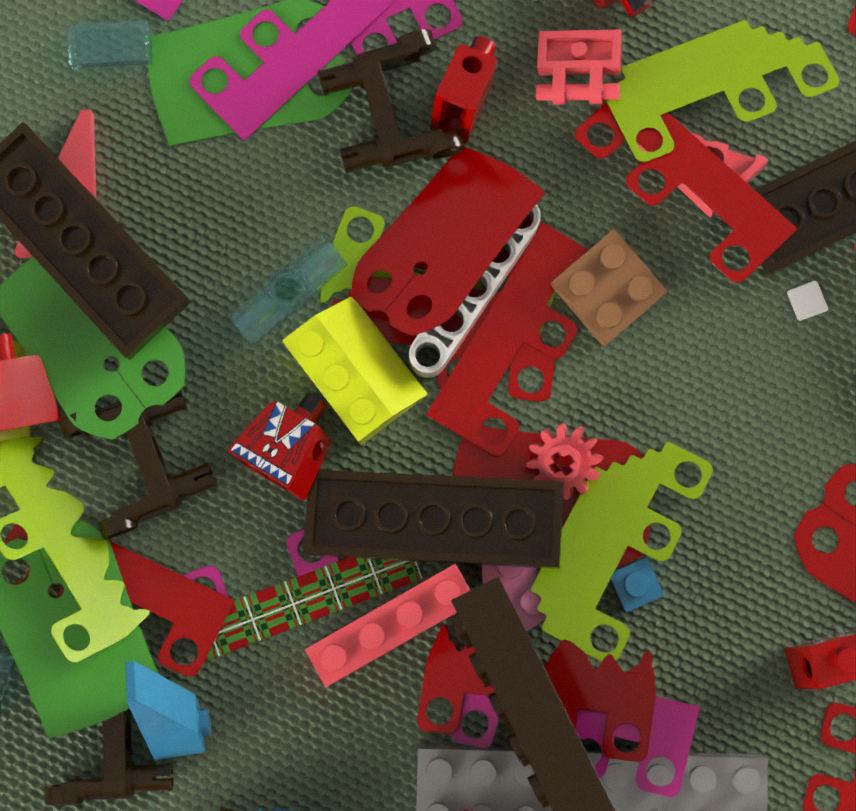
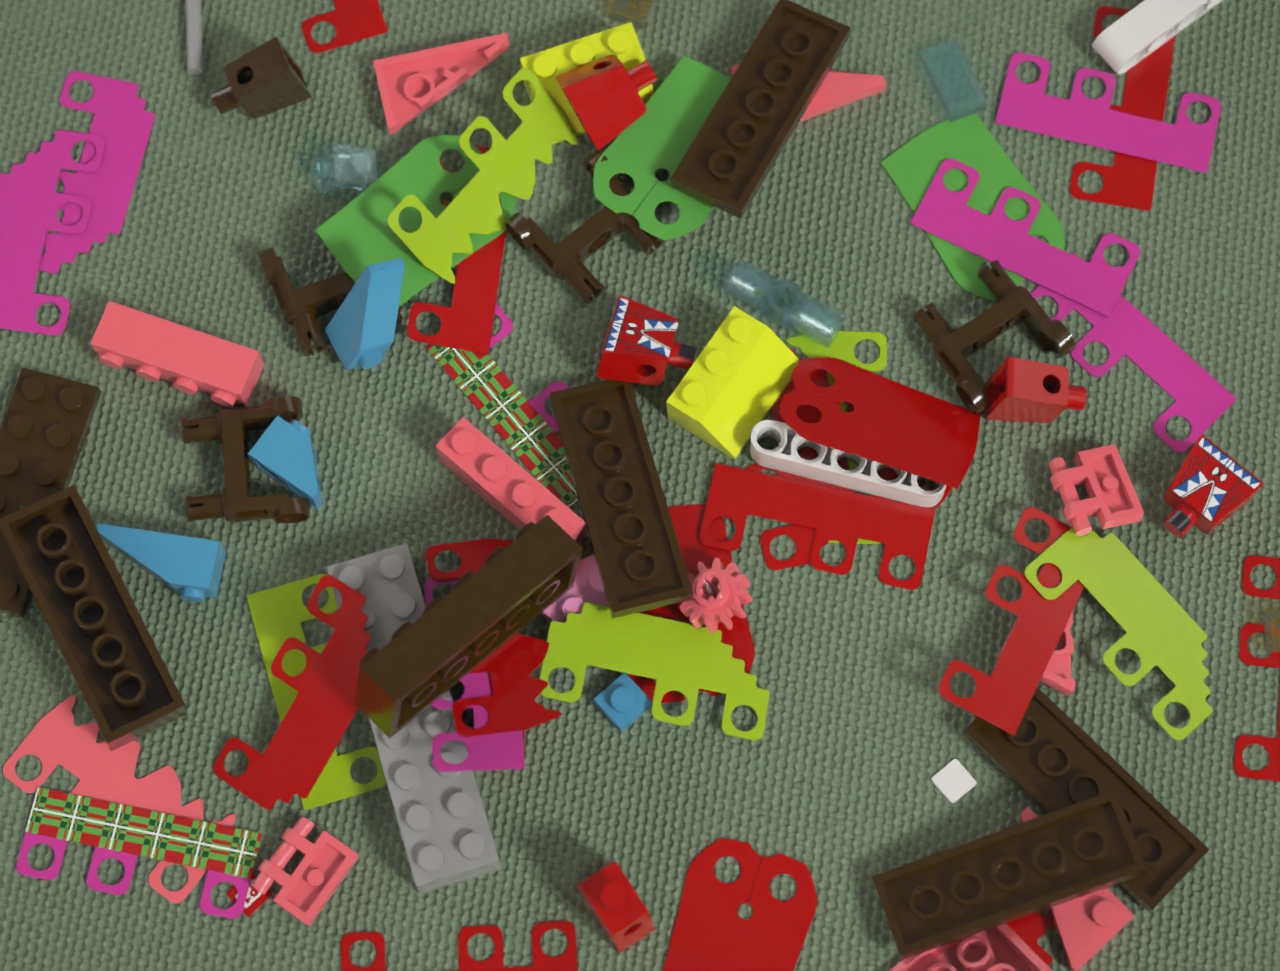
camera: 75 degrees right, 10 degrees down
(608, 287) = (894, 587): medium nougat plate -> none

